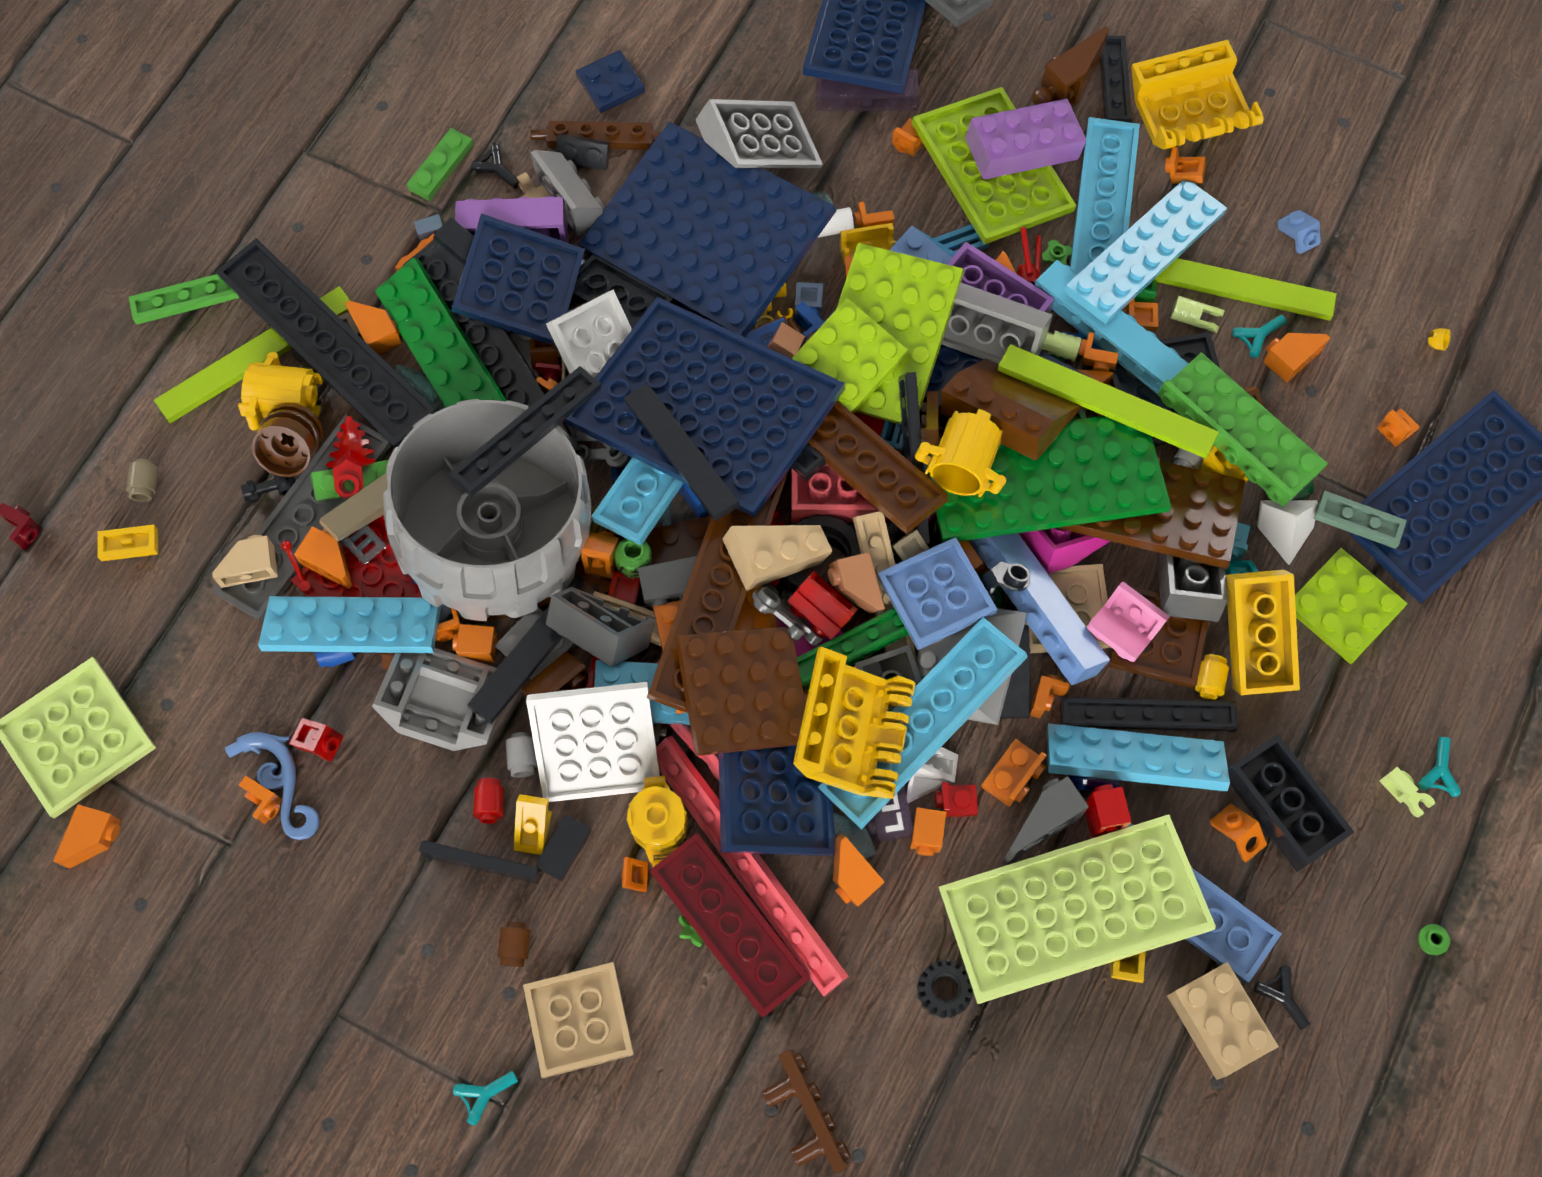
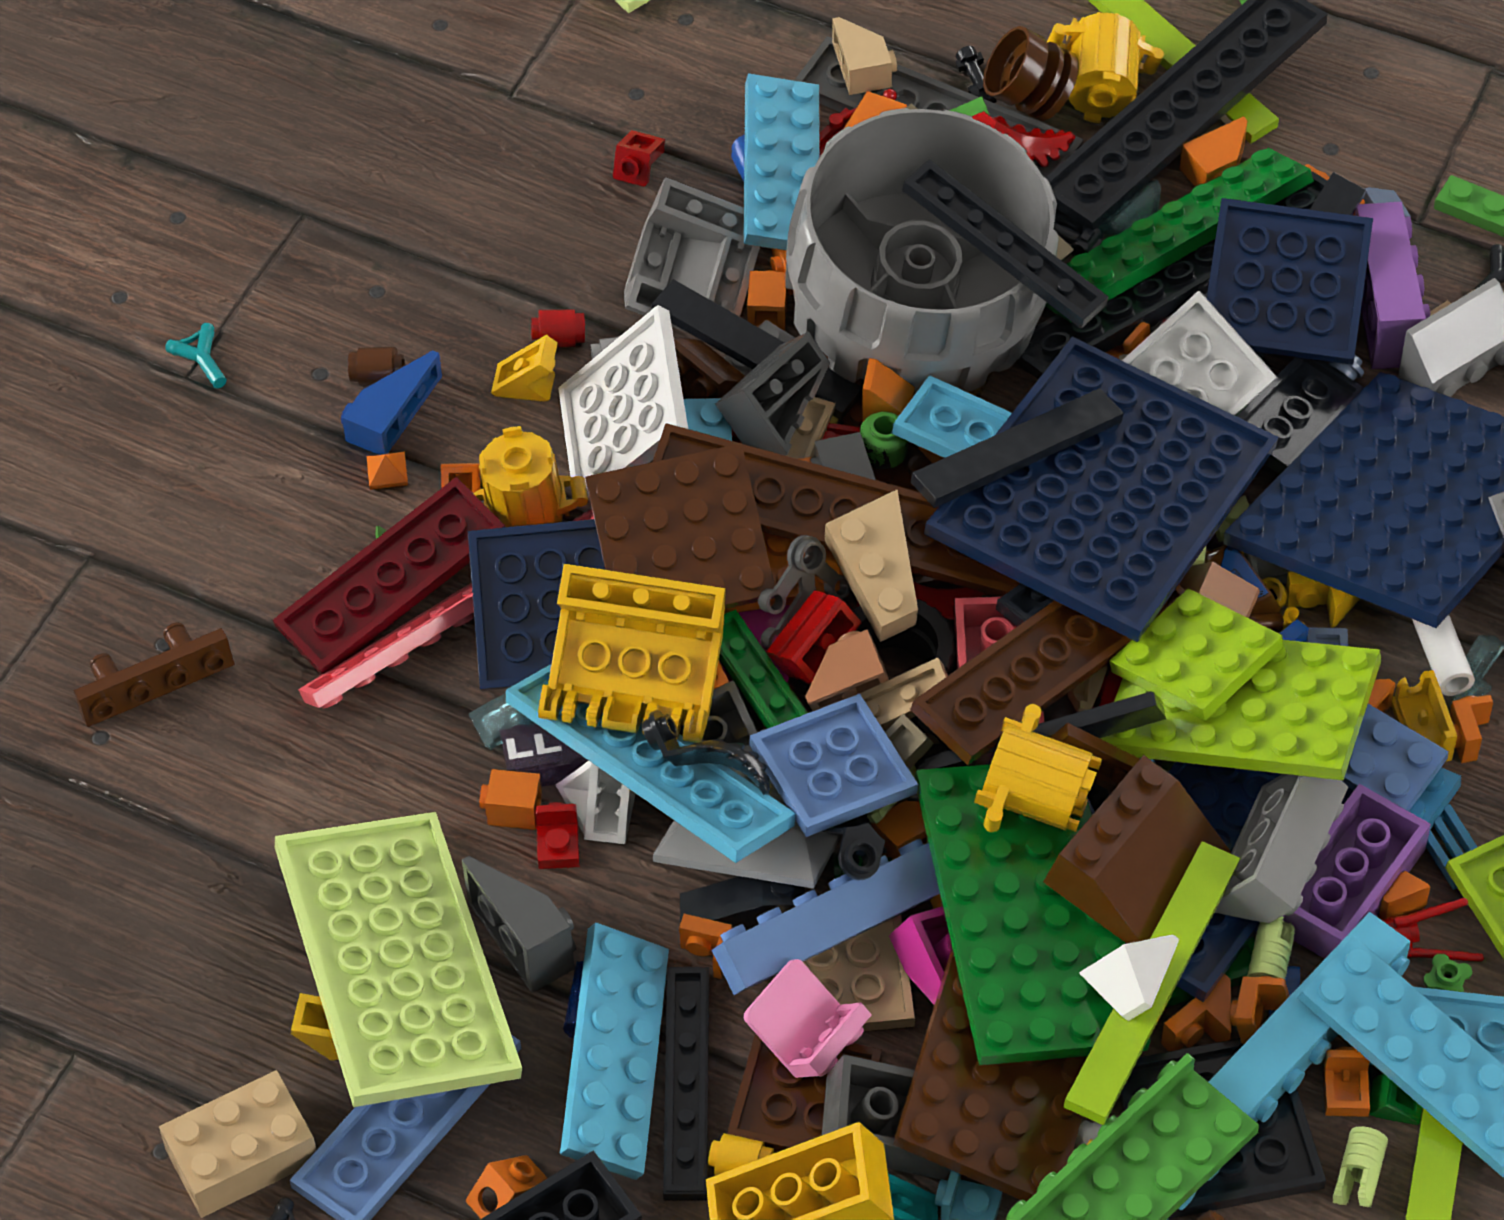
camera: 90 degrees right, 15 degrees down
(267, 801) = (564, 113): orange bracket -> none
(287, 778) = (587, 134): medium blue plant -> none
(480, 862) = (479, 325): black tile -> none
(562, 936) = (389, 405): none -> blue slope
(563, 847) = (497, 409): black tile -> none
(578, 1020) = (281, 436): tan plate -> none
(613, 935) = (387, 470): none -> orange slope
(853, 873) = (456, 707): orange slope -> none
(932, 1002) = (294, 803): black tyre -> none
(933, 675) = (662, 733): none -> black plant
(1013, 772) = (594, 900): orange bracket -> none
(1107, 811) = (531, 998): red brick -> none
(1116, 406) = (1132, 974): none -> white slope

